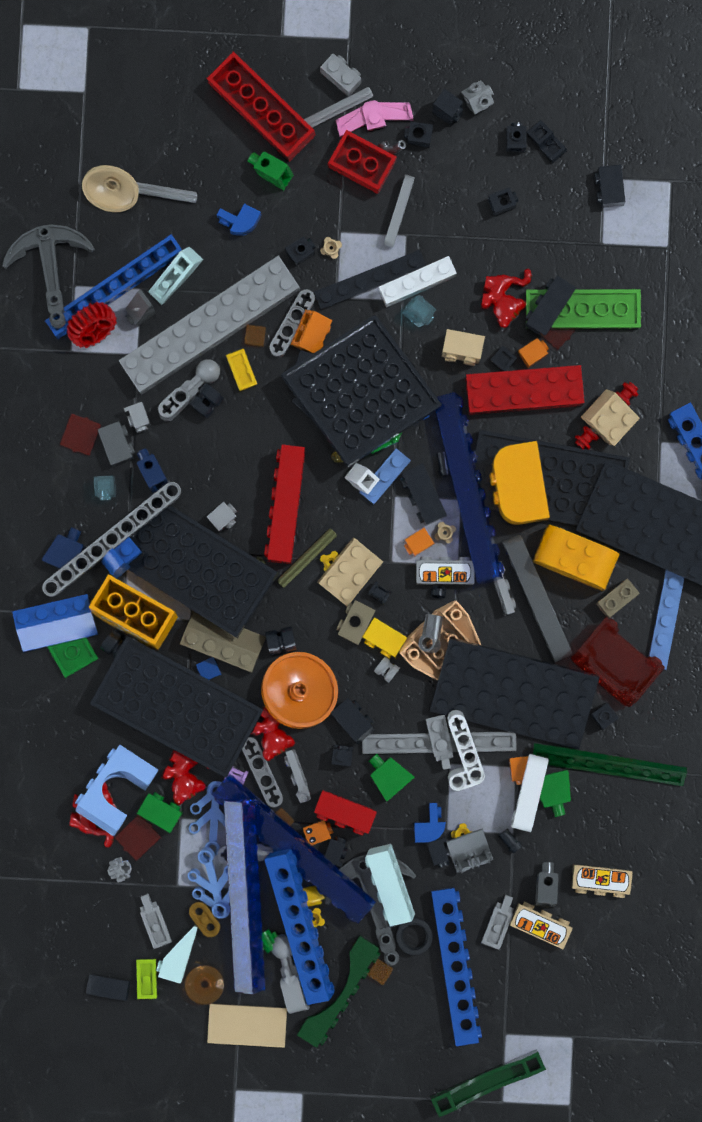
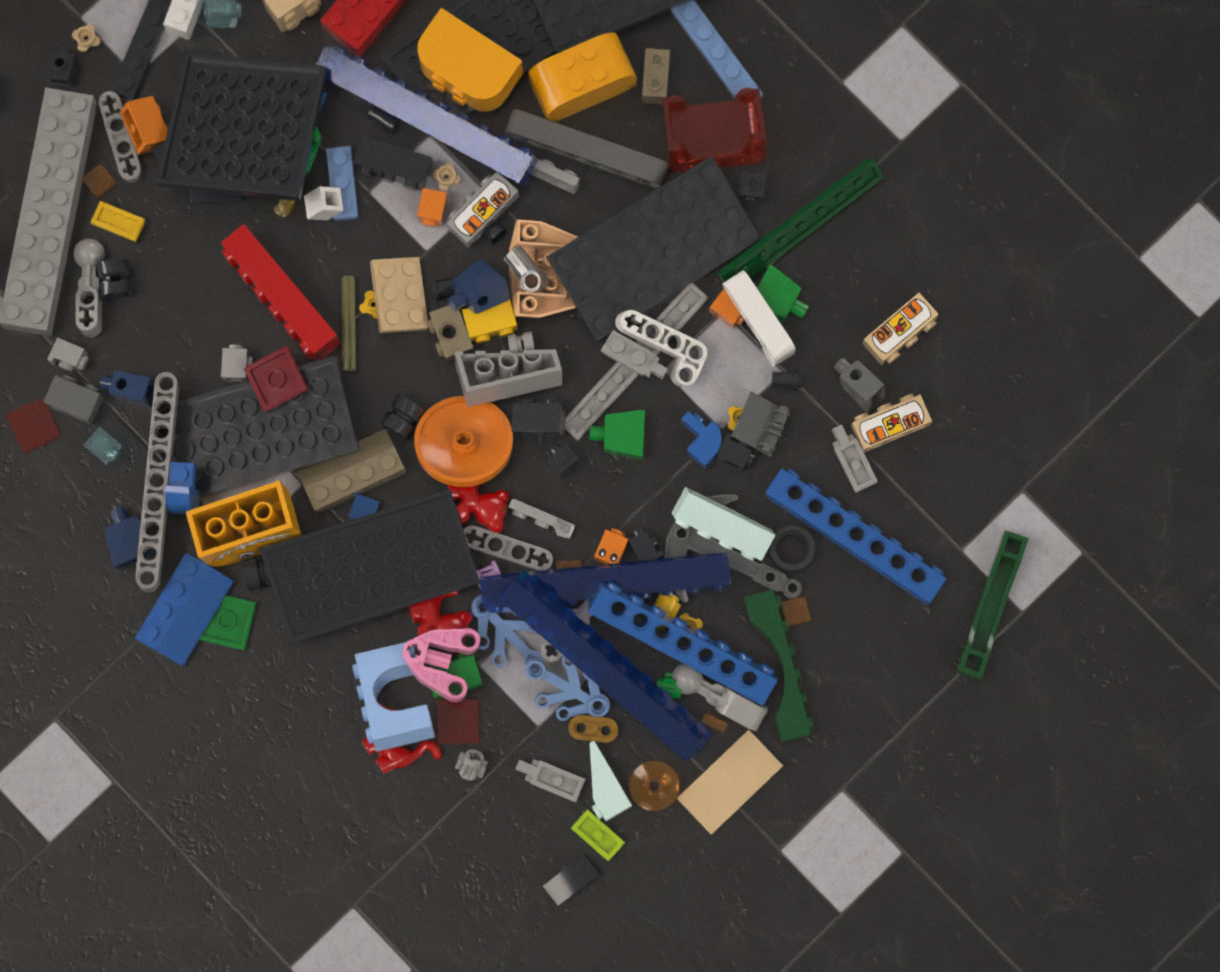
camera: 45 degrees left, 5 degrees down
(146, 807) = (442, 639): none -> bright pink connector
(233, 551) = (276, 379): none -> dark red tile
(271, 986) = (714, 723): none -> clear orange tile
(345, 812) = (616, 503): red brick -> none
(360, 677) = (506, 374): none -> light grey wedge
(395, 616) = (479, 289): none -> dark blue torso

